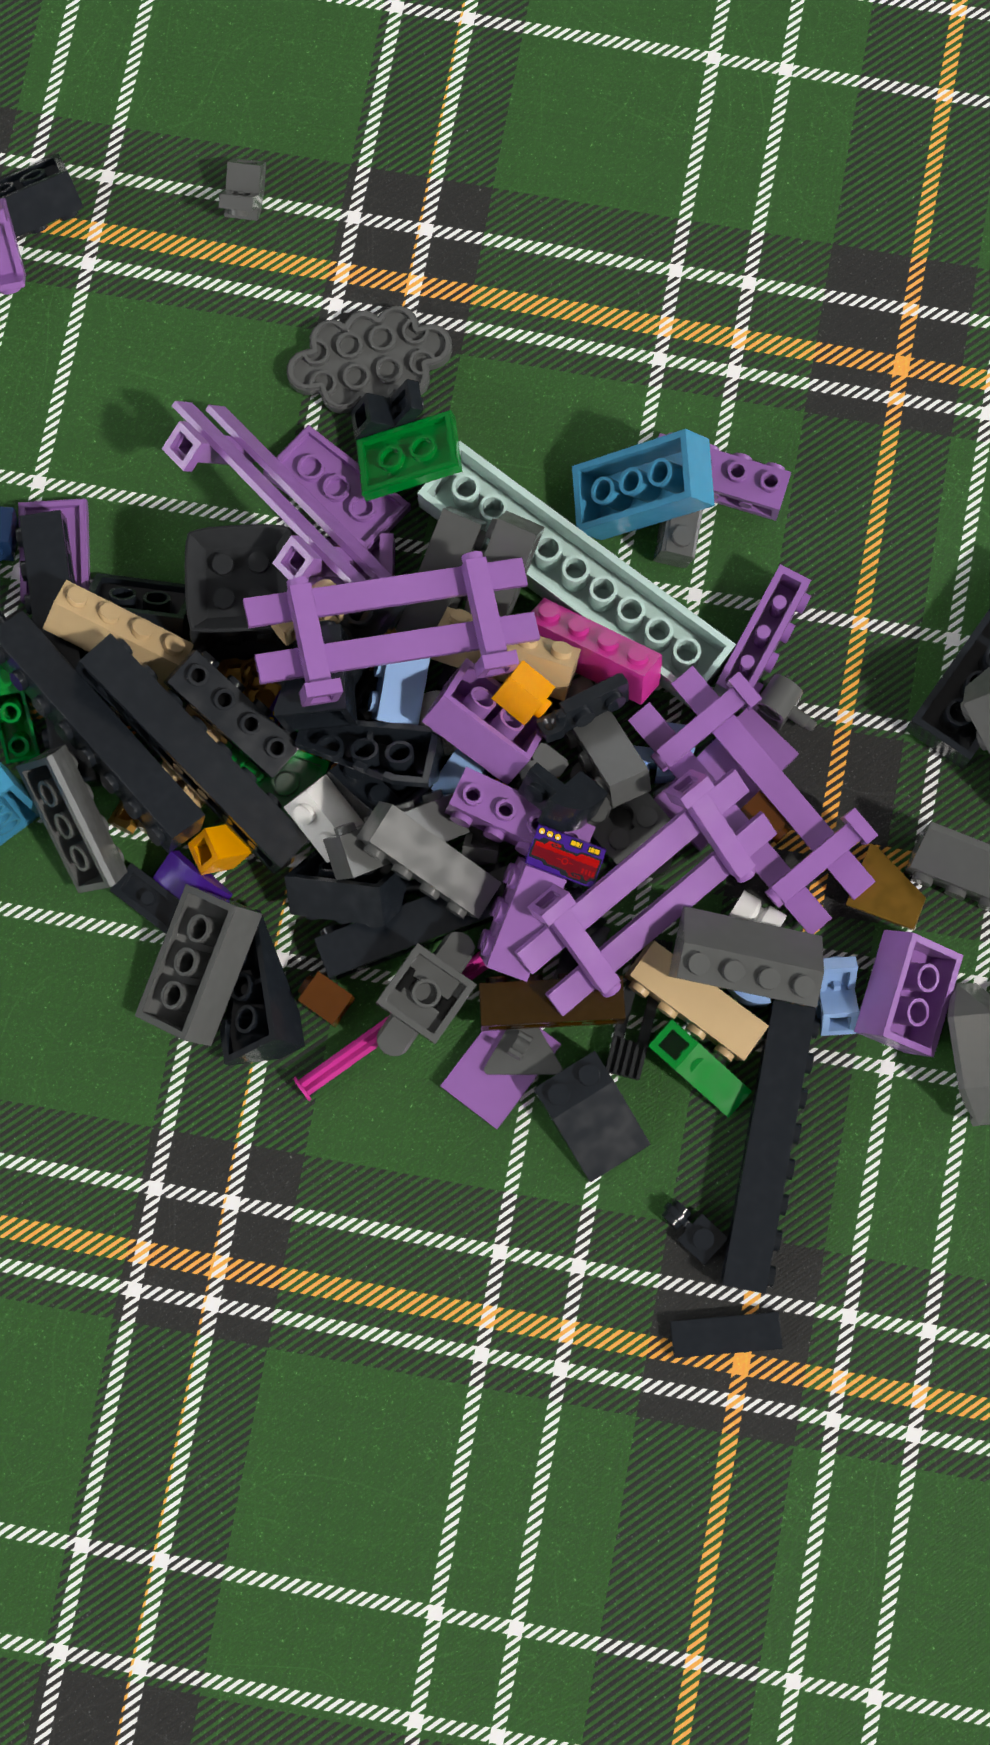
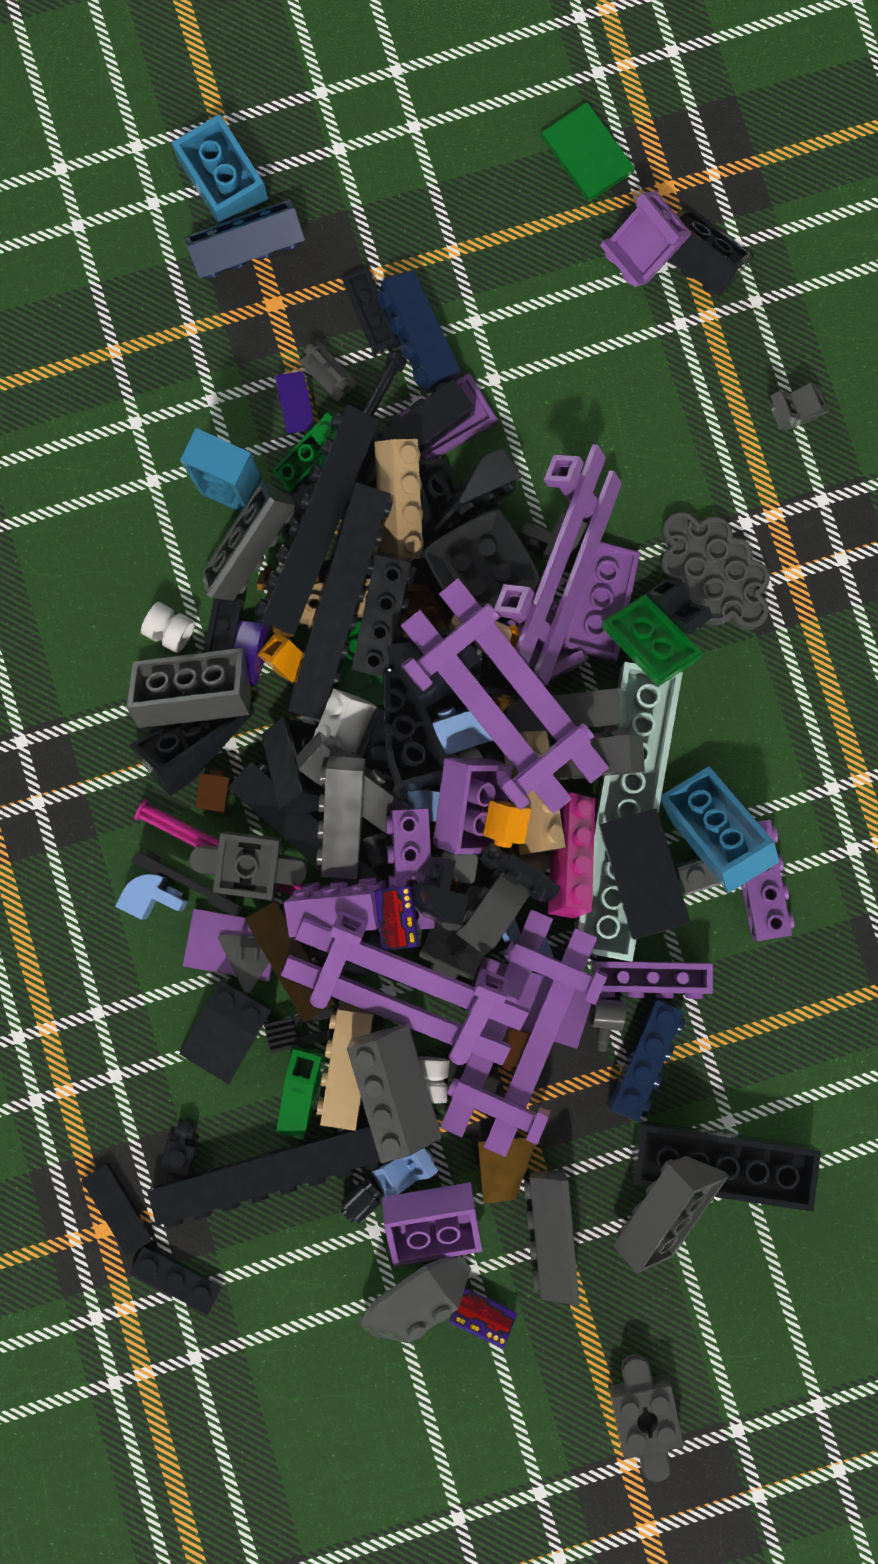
camera: 60 degrees right, 5 degrees up
(118, 958) = (165, 626): none -> white wheel
(154, 549) = (480, 490): none -> black slope
(248, 507) = (539, 538): none -> dark grey brick
(366, 1105) = (151, 862): none -> black container
(393, 1126) = (143, 892): none -> light blue brick
(650, 584) = (644, 874): none -> black tile
(834, 1307) = (176, 1279): none -> black plate
(845, 686) = (645, 1060): none -> dark blue brick
(848, 1060) = (361, 1201): none -> black brick

